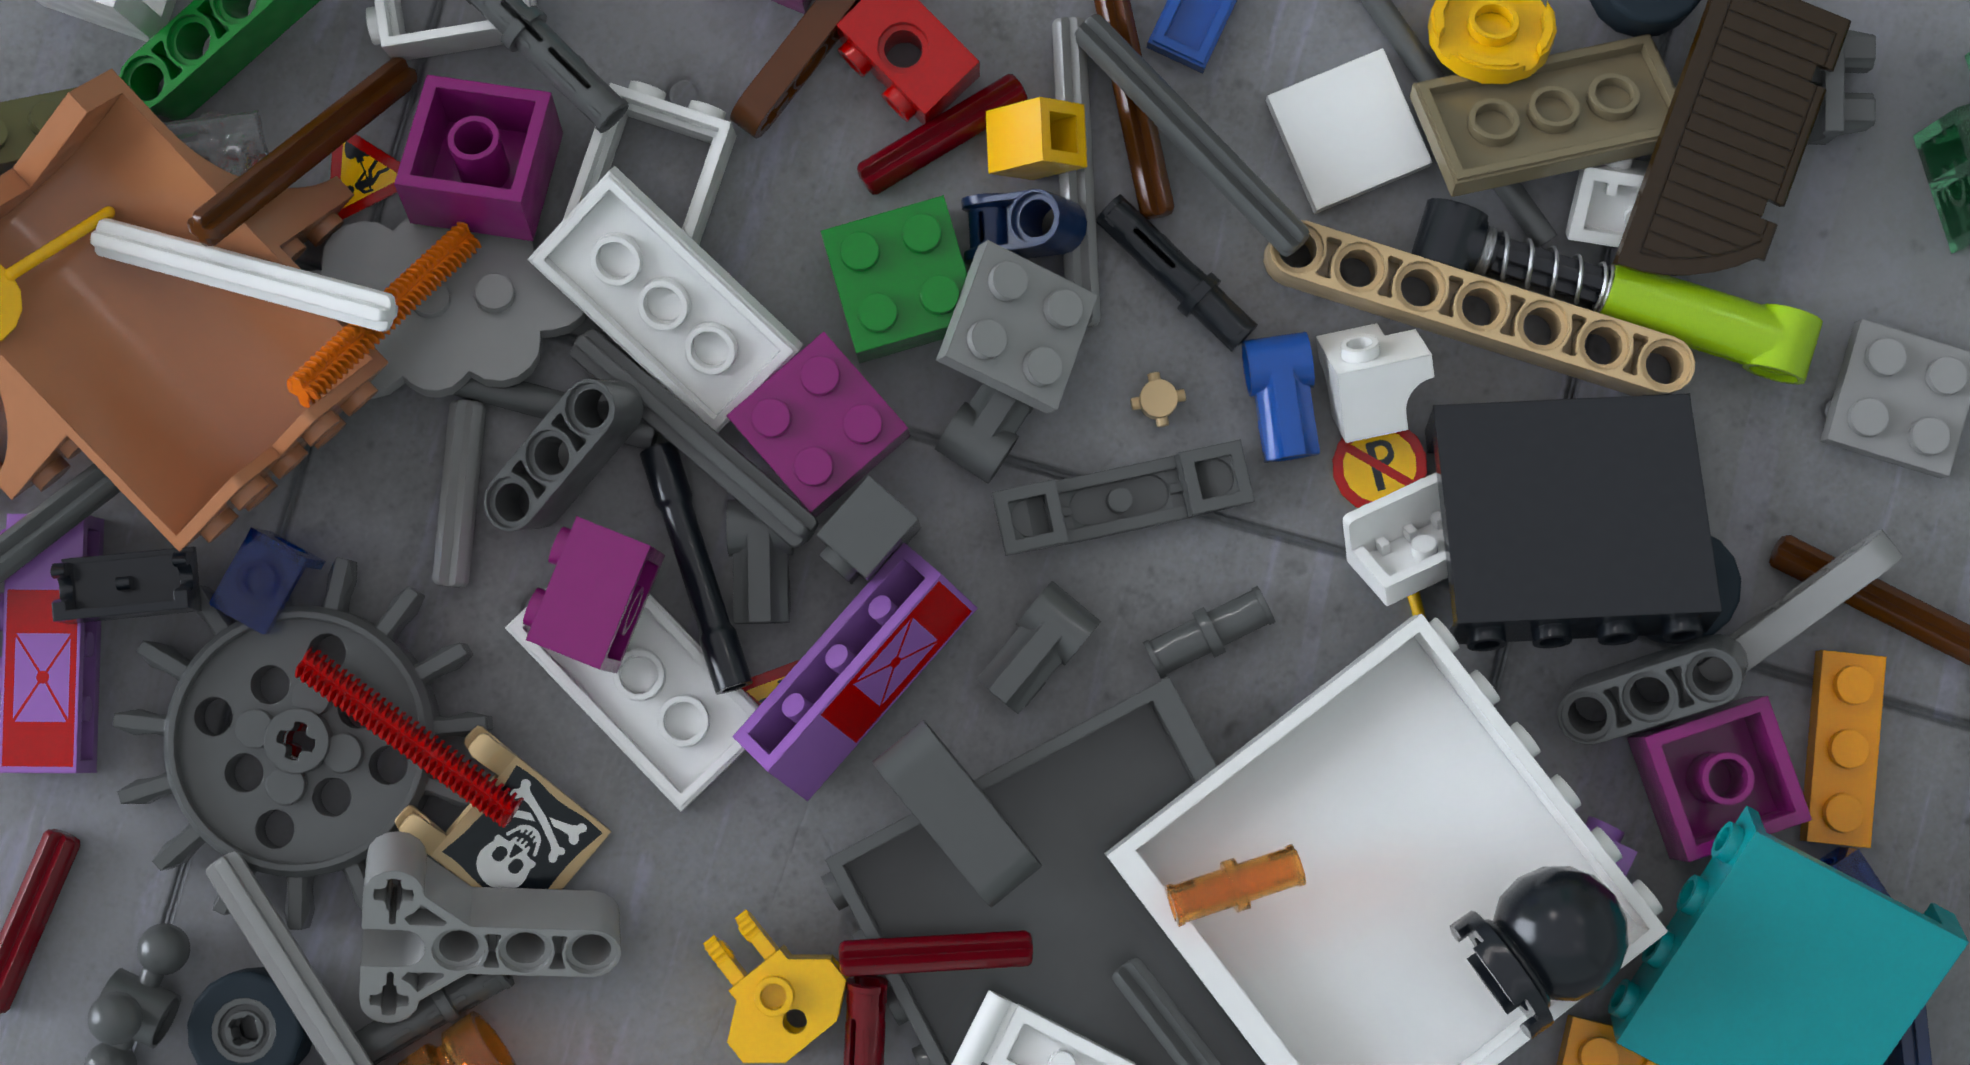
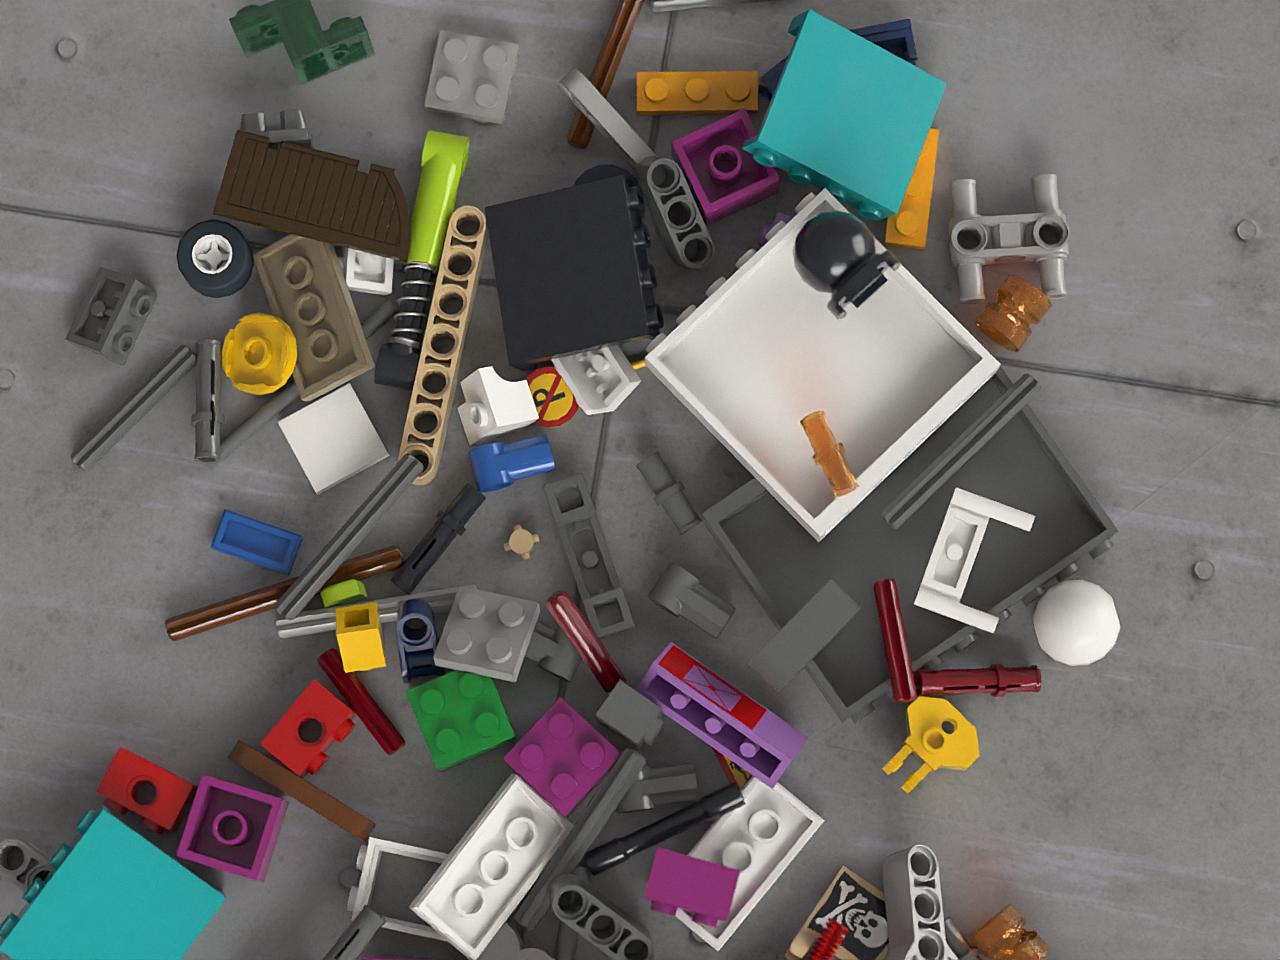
camera: 90 degrees left, 5 degrees down
(990, 476) = (584, 640): none -> dark red axle
(1108, 123) = (343, 593): none -> lime tile

